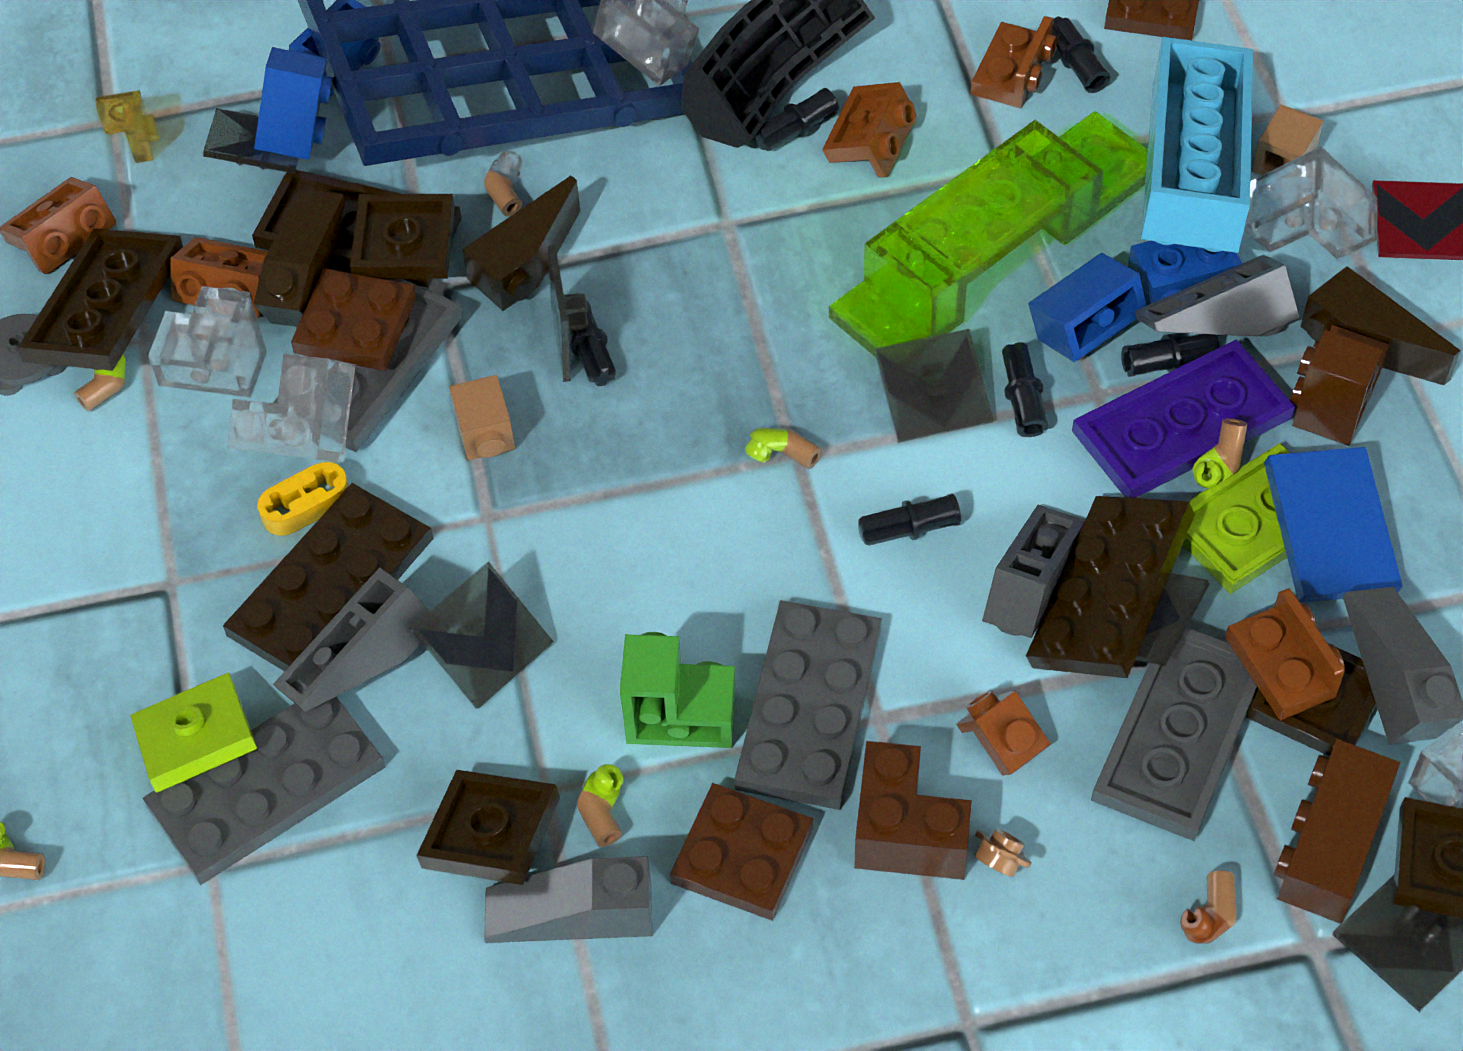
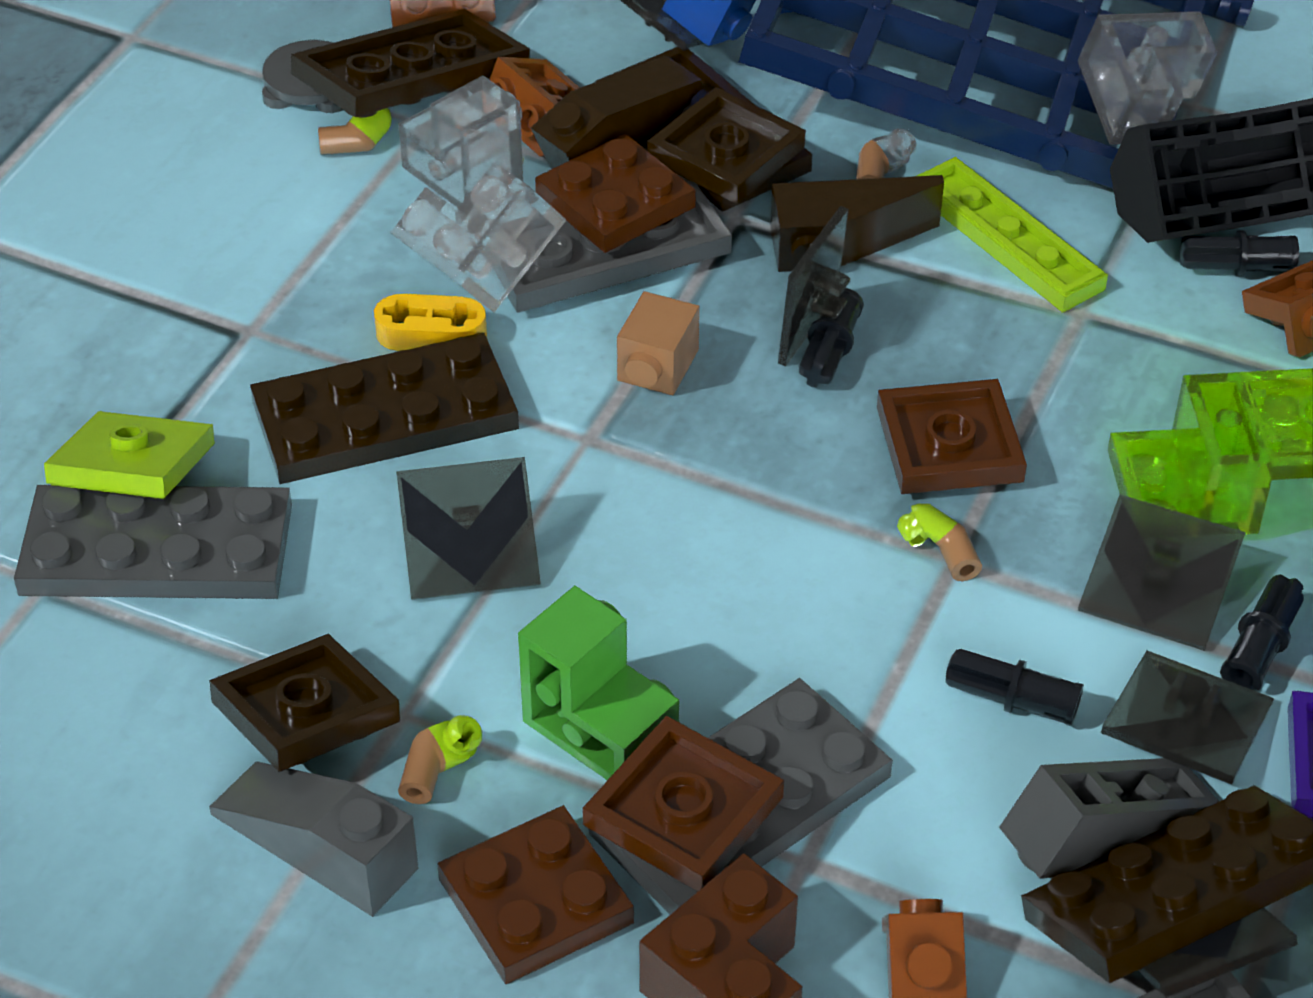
camera: 35 degrees right, 10 degrees down
(356, 644) = (342, 464): dark grey slope -> none
(638, 190) = (1016, 238): none -> lime tile
(728, 369) = (950, 436): none -> reddish brown plate
(798, 732) = (683, 803): none -> reddish brown plate
(1022, 474) = (1188, 716): none -> clear smoke piece

